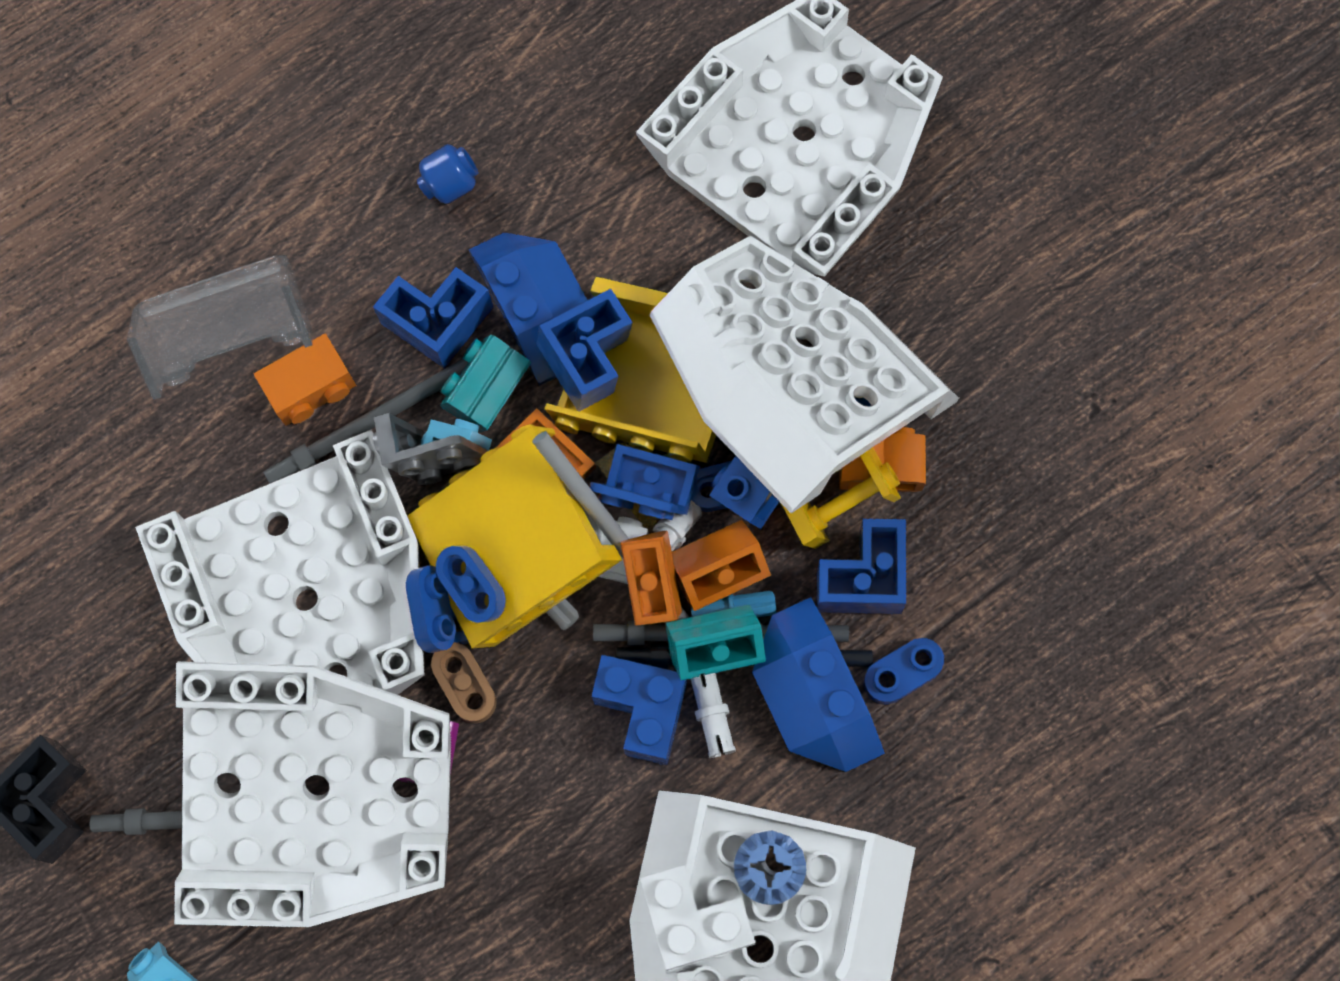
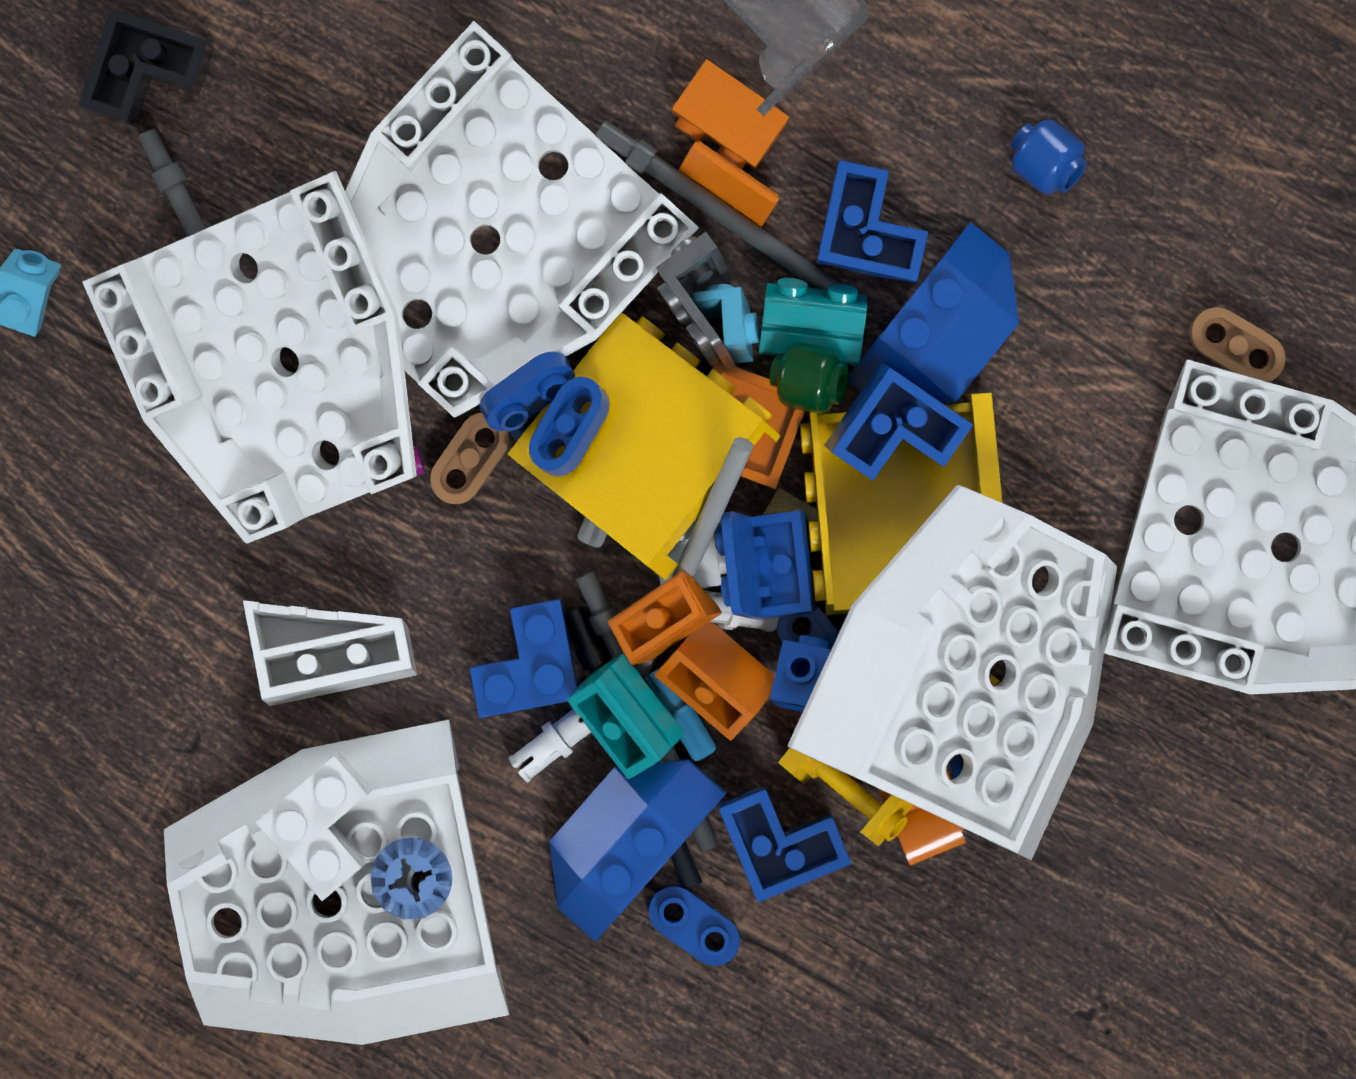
camera: 60 degrees right, 15 degrees up
(353, 400) = (729, 183): none -> orange slope
(521, 396) = (809, 378): none -> dark green head
(560, 861) = (324, 652): none -> white wedge
(639, 103) = (1236, 344): none -> medium nougat plate

